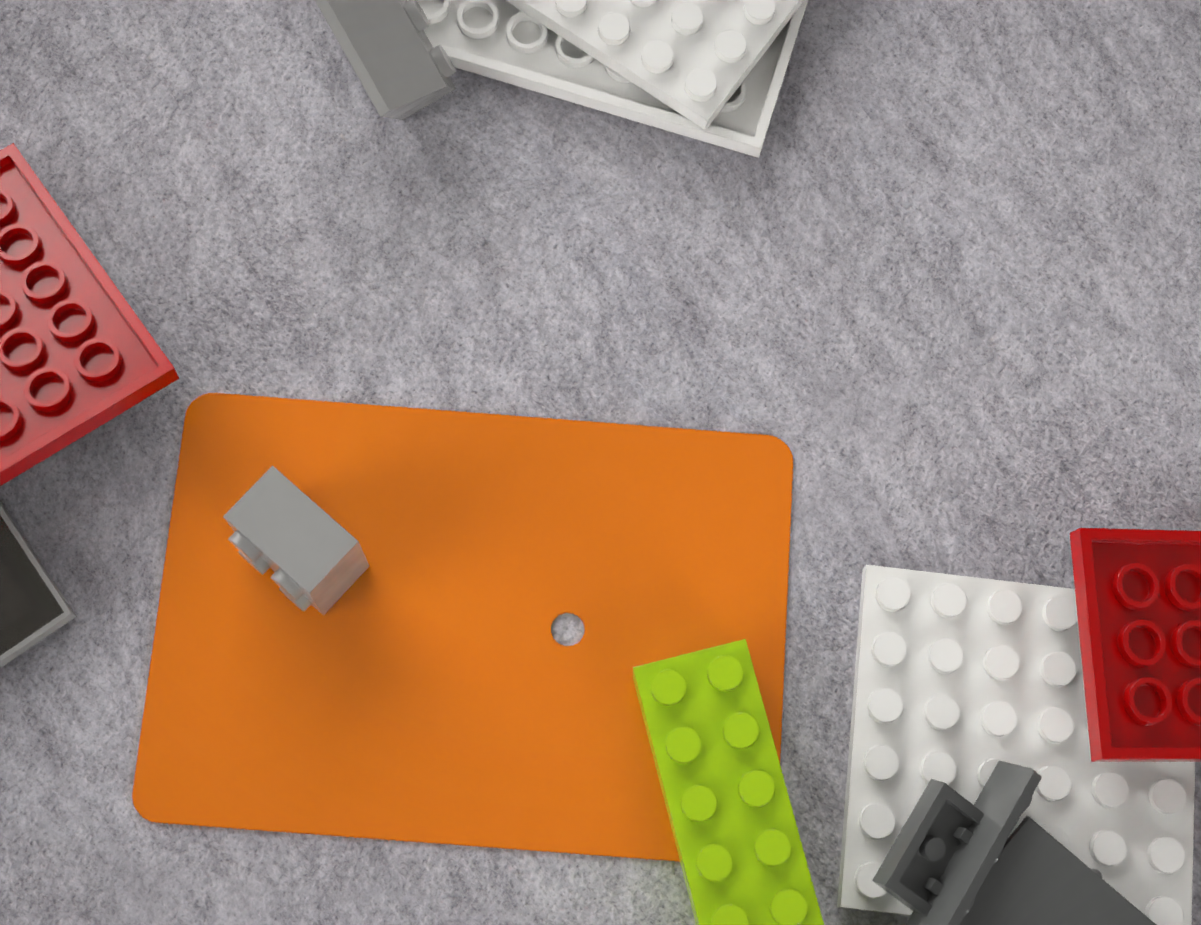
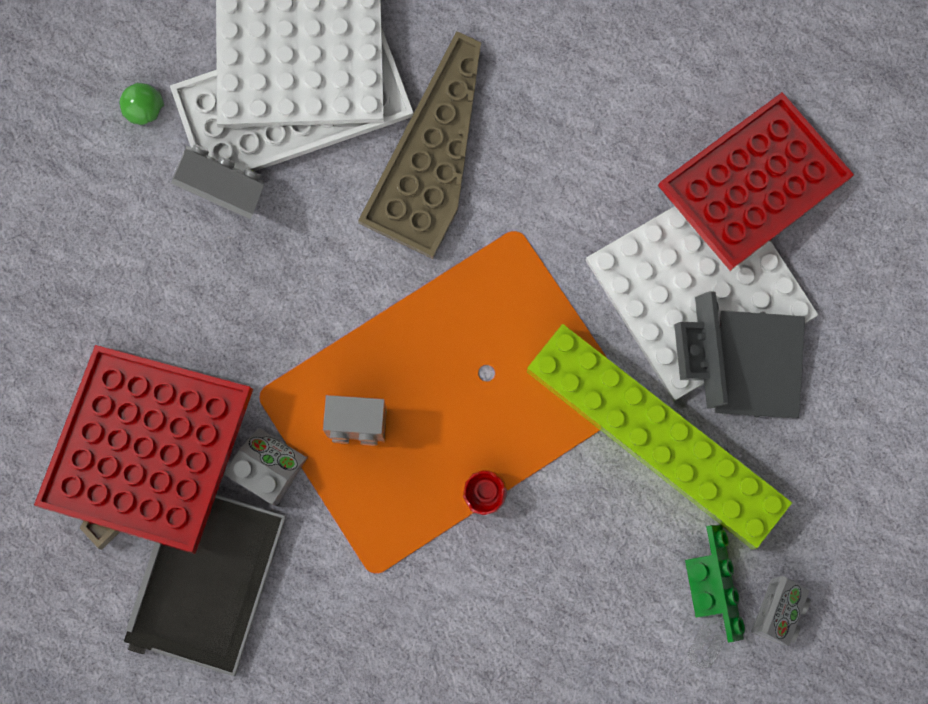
camera: 30 degrees left, 5 degrees up
(104, 514) = (265, 466): none -> light grey slope
(410, 820) = (485, 492): none -> red hair
(710, 252) = (425, 173): none -> dark tan wing

